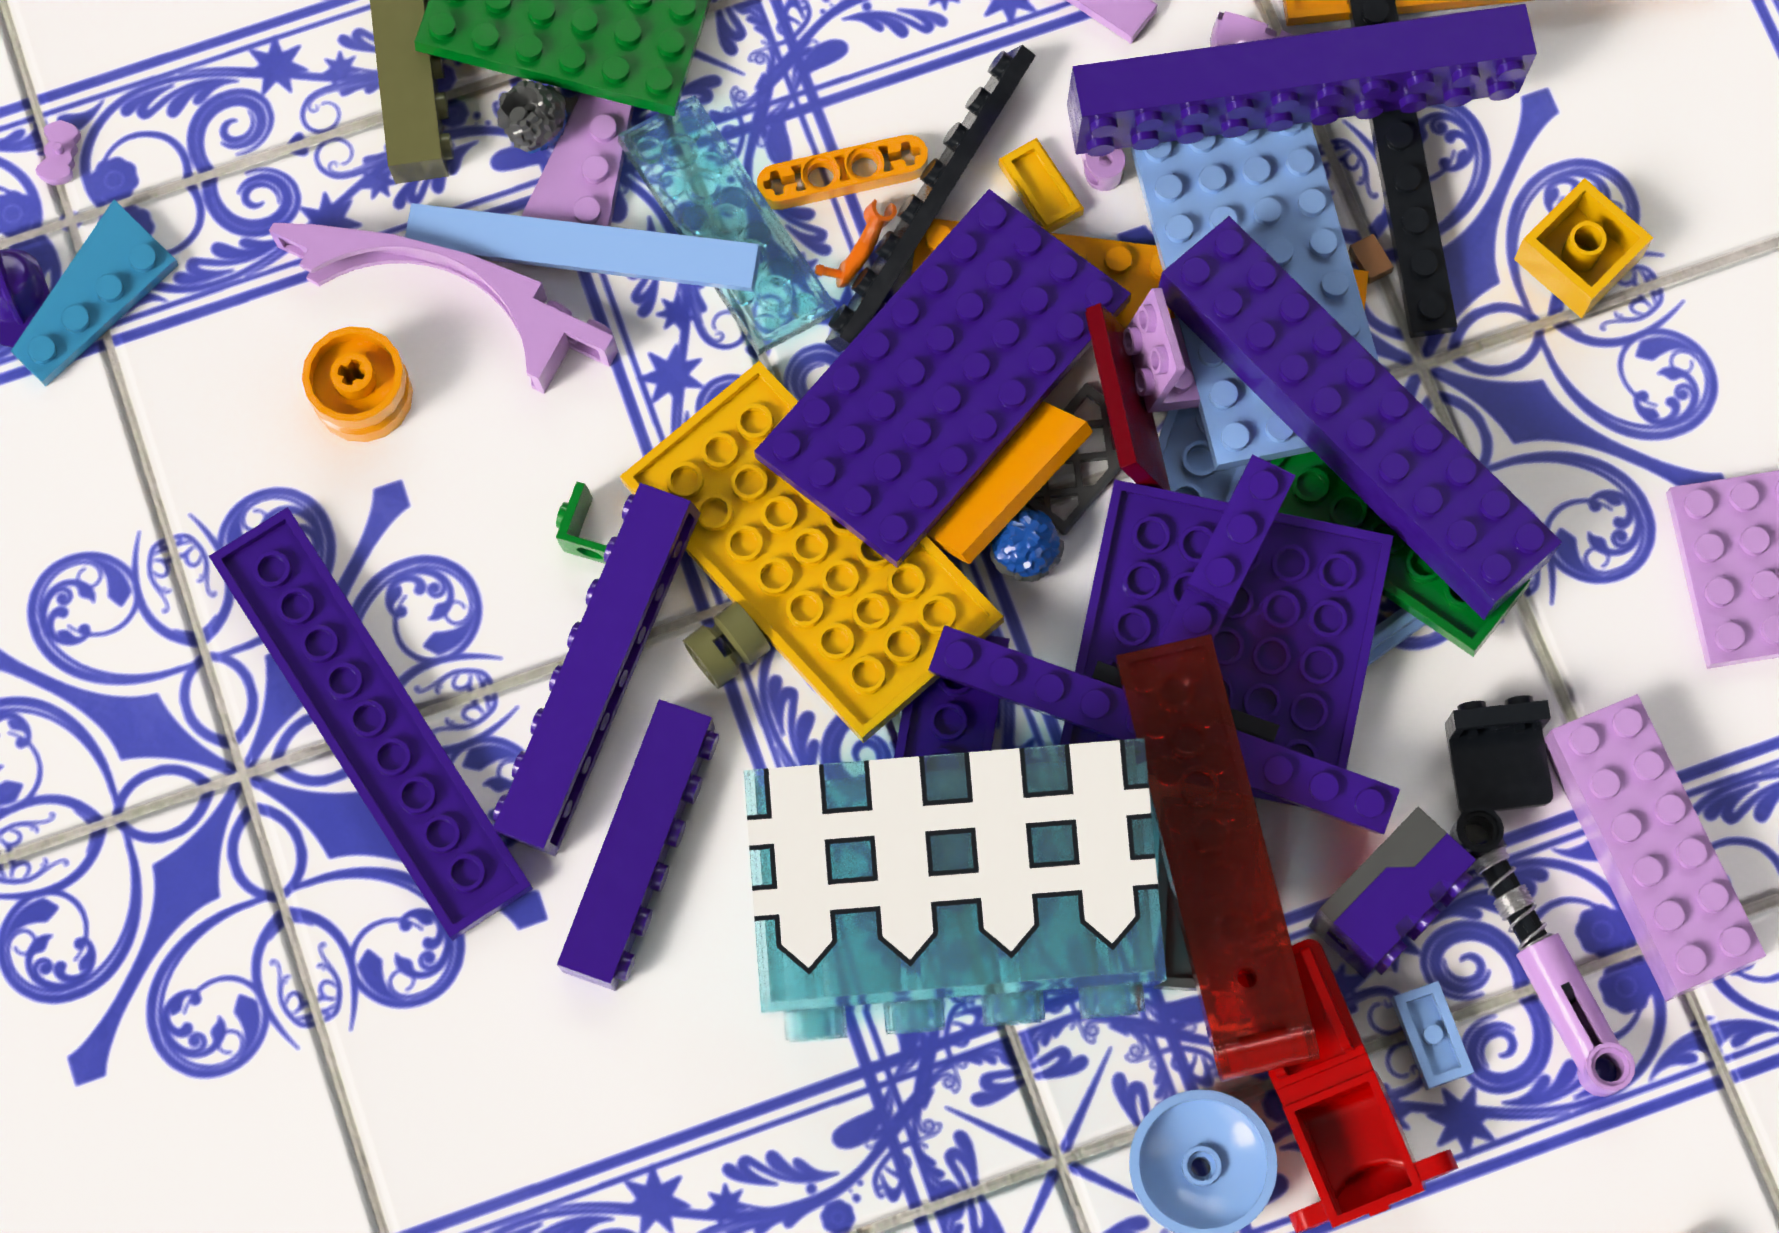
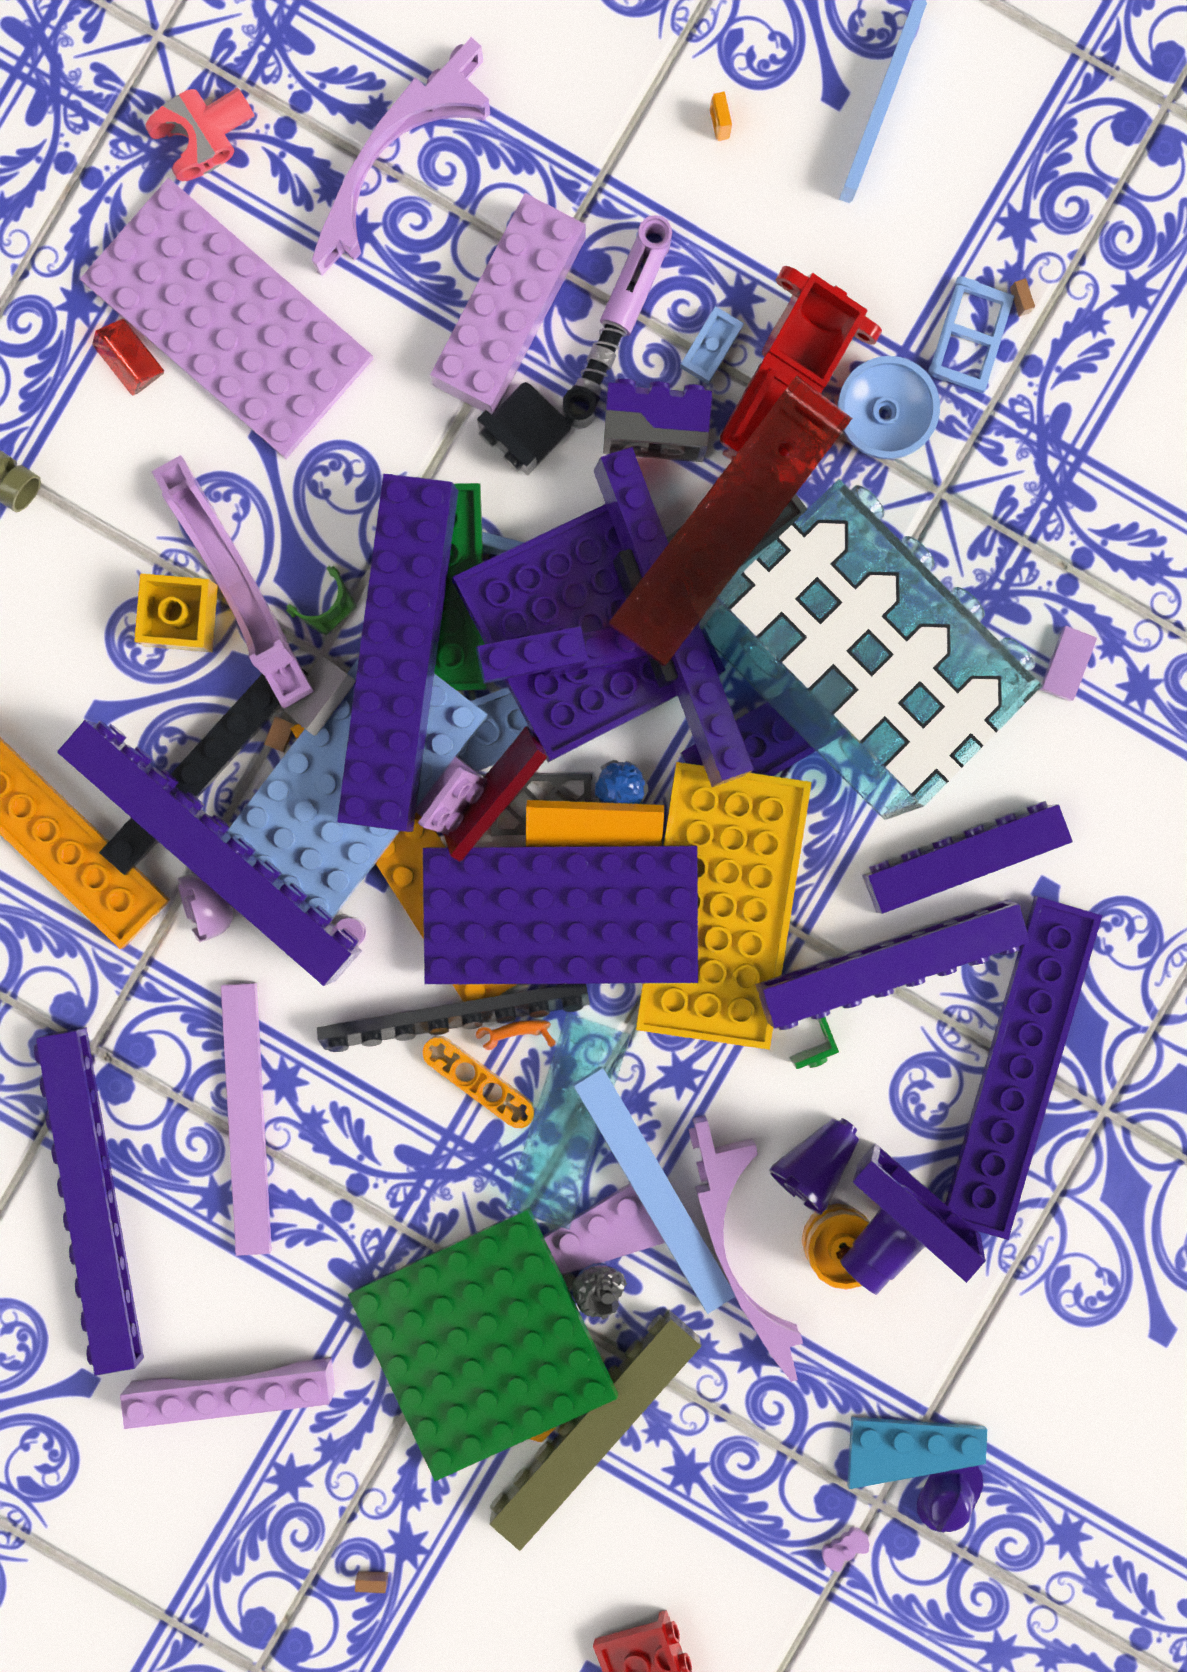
camera: 130 degrees left, 15 degrees up
(330, 450) = (905, 1225): none -> dark purple piece
(461, 426) = (817, 1164): none -> dark purple cone
(739, 635) = (806, 901): olive wheel -> none
(750, 1138) = (1068, 663): none -> lavender tile
(1040, 186) = (391, 960): yellow tile -> none
(1378, 317) = (329, 688): none -> light grey tile
(1454, 412) = (338, 612): none -> bright green helmet
(1491, 318) = (260, 629): none -> lavender slope

